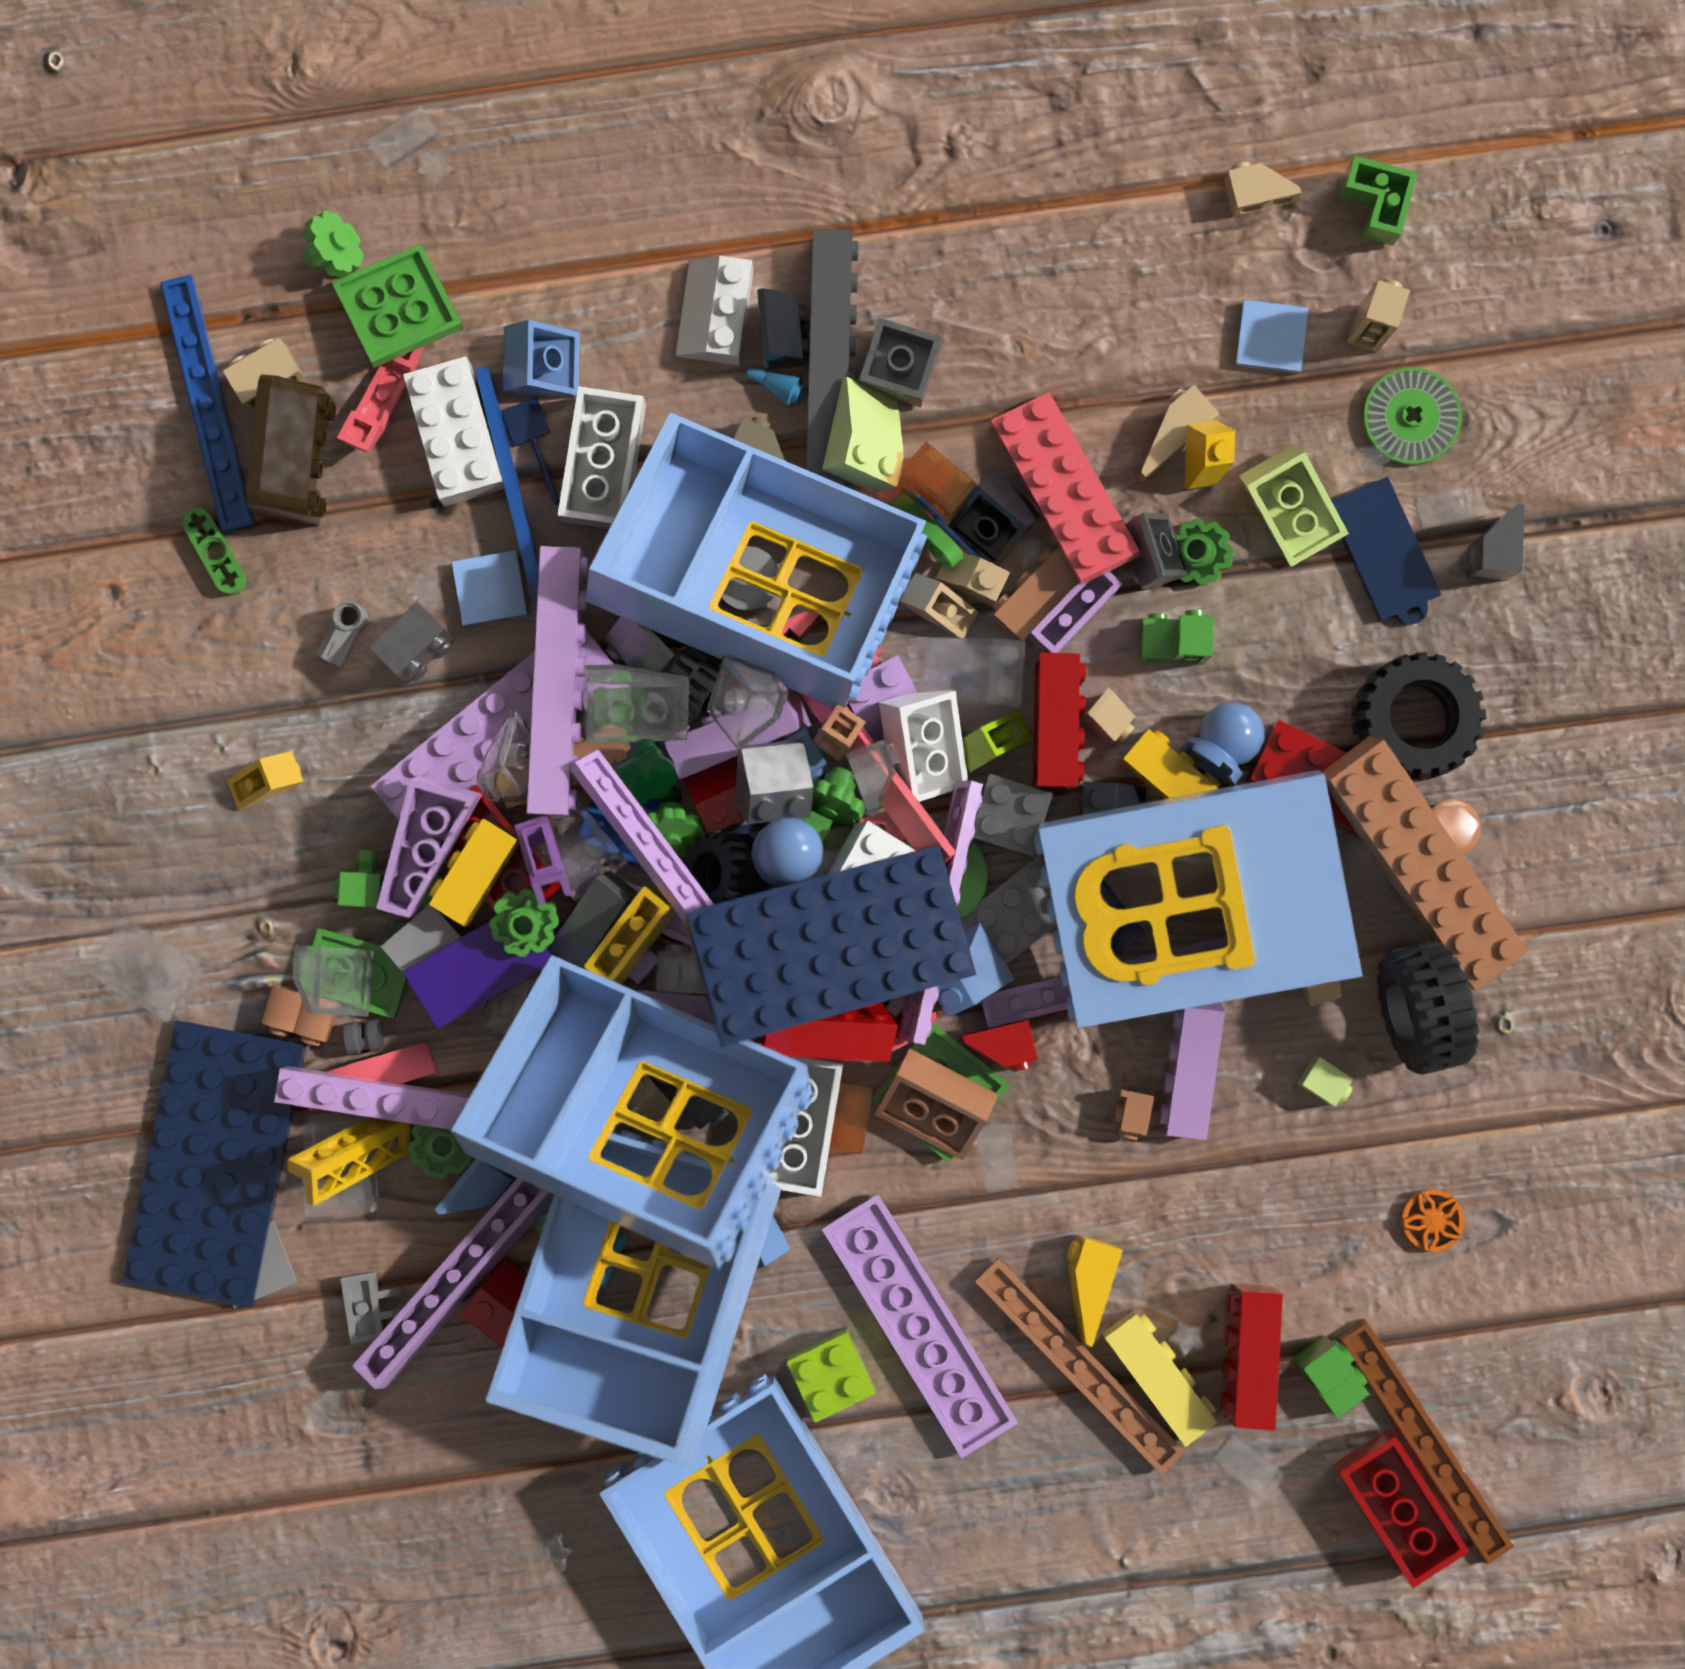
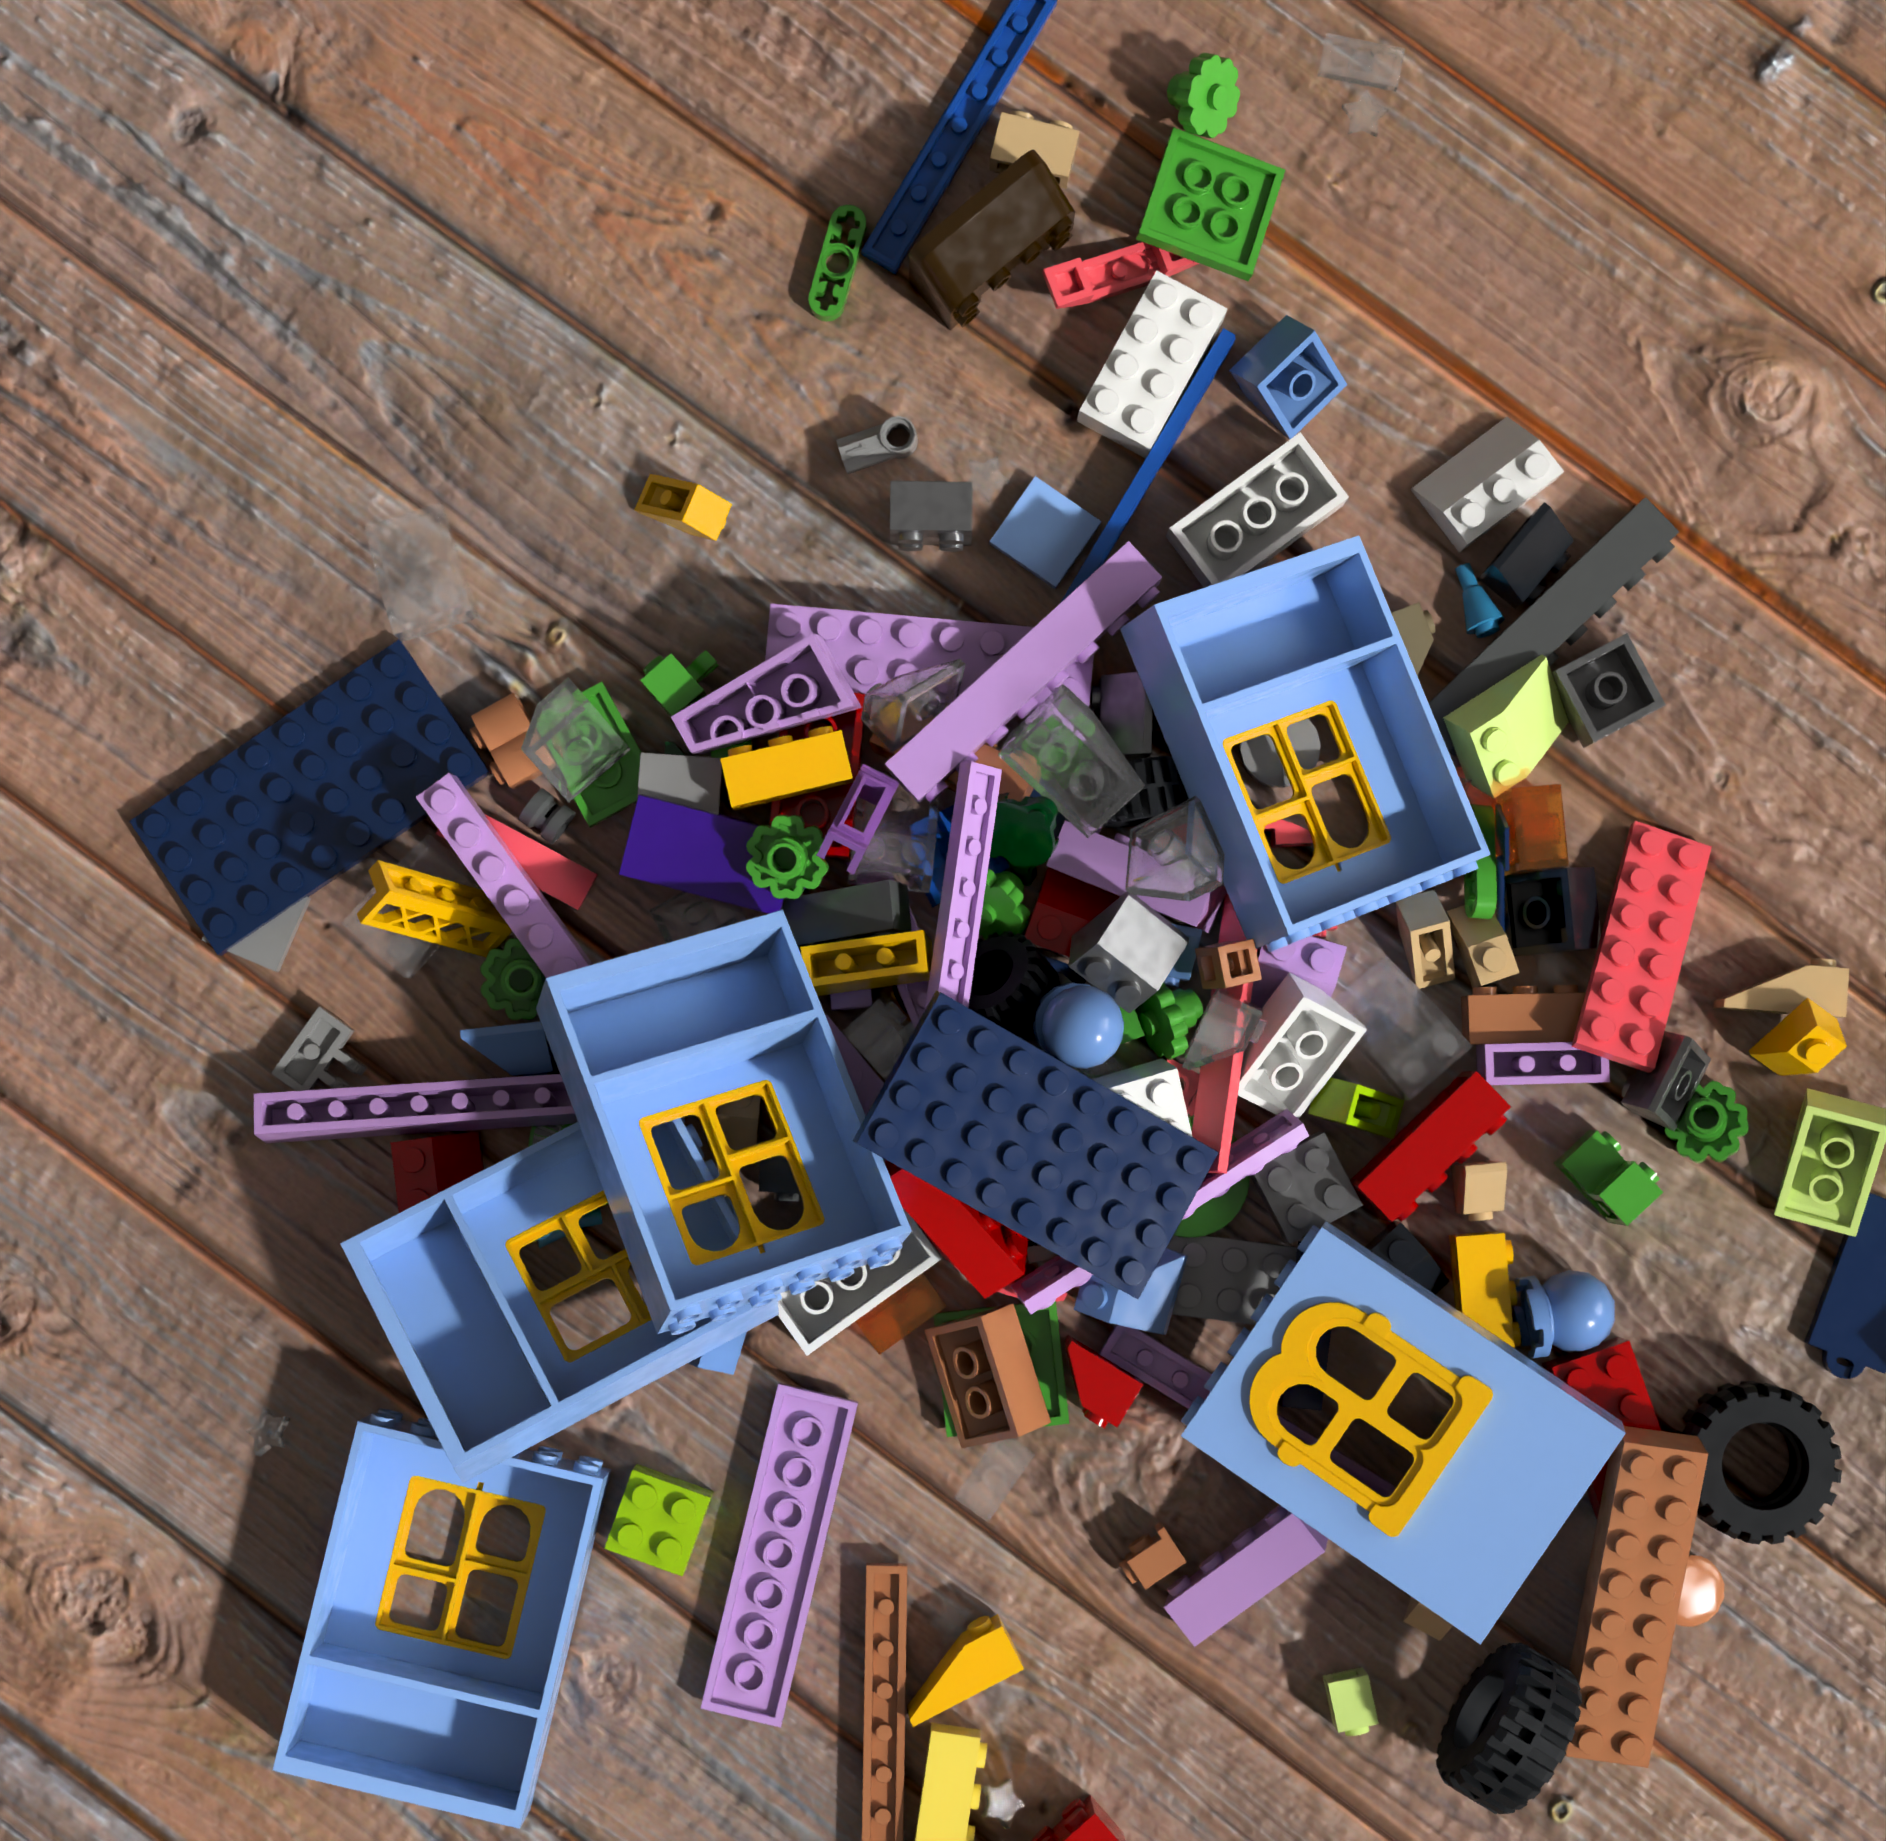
camera: 40 degrees right, 0 degrees up
(526, 424) = (1220, 419): dark blue piece -> none

